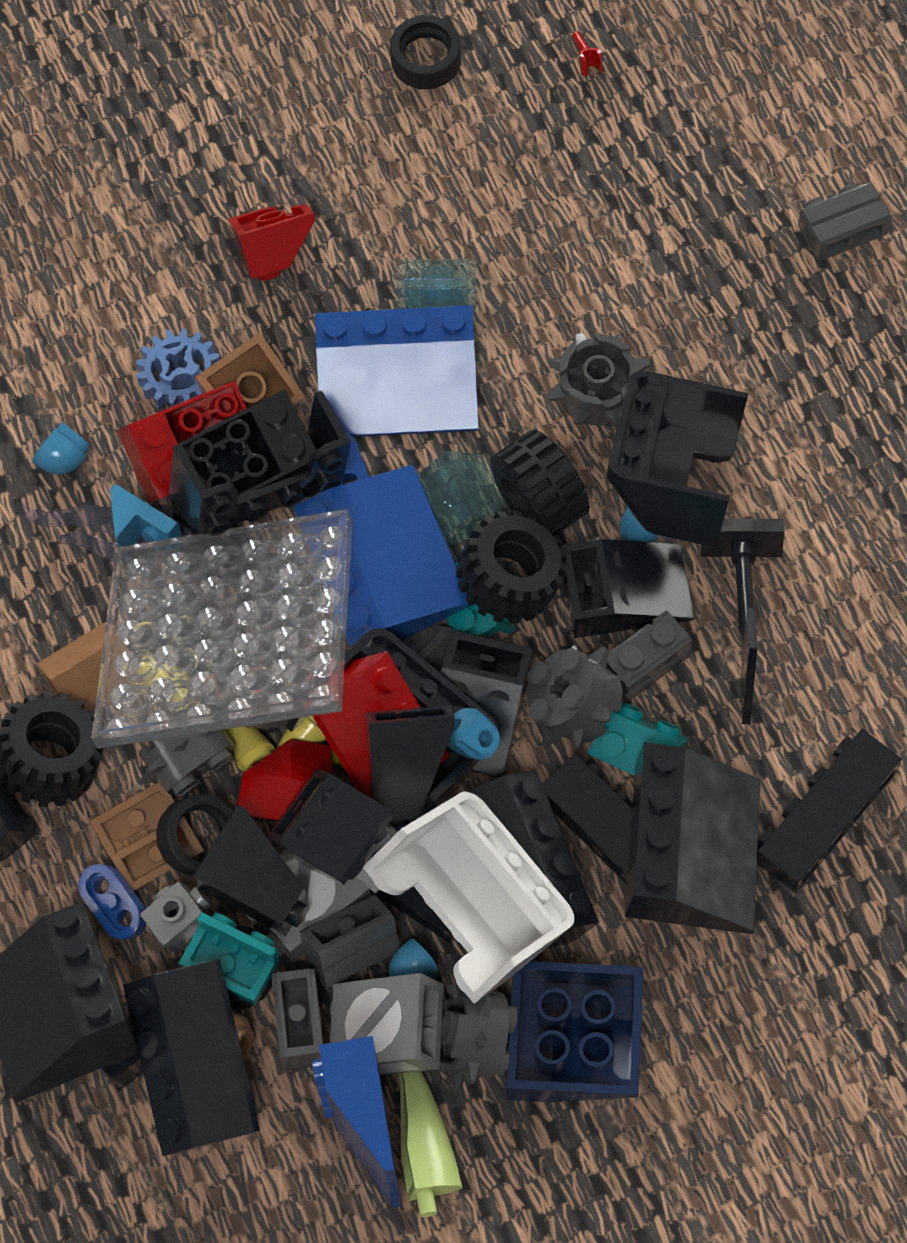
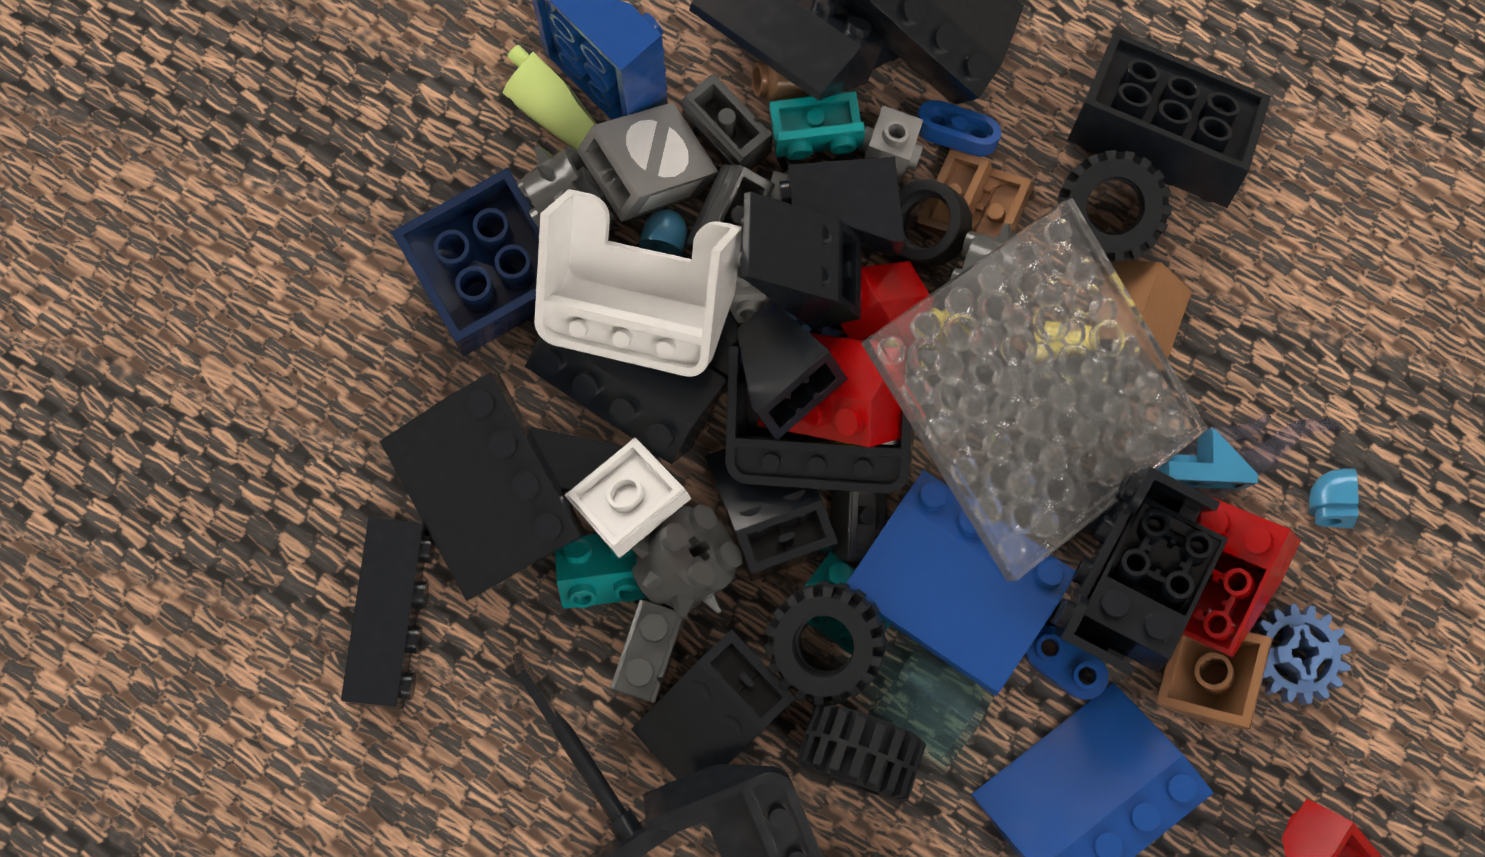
camera: 140 degrees right, 10 degrees up
(473, 735) = (739, 431): dark azure piece -> none
(588, 757) = (627, 497): none -> white plate

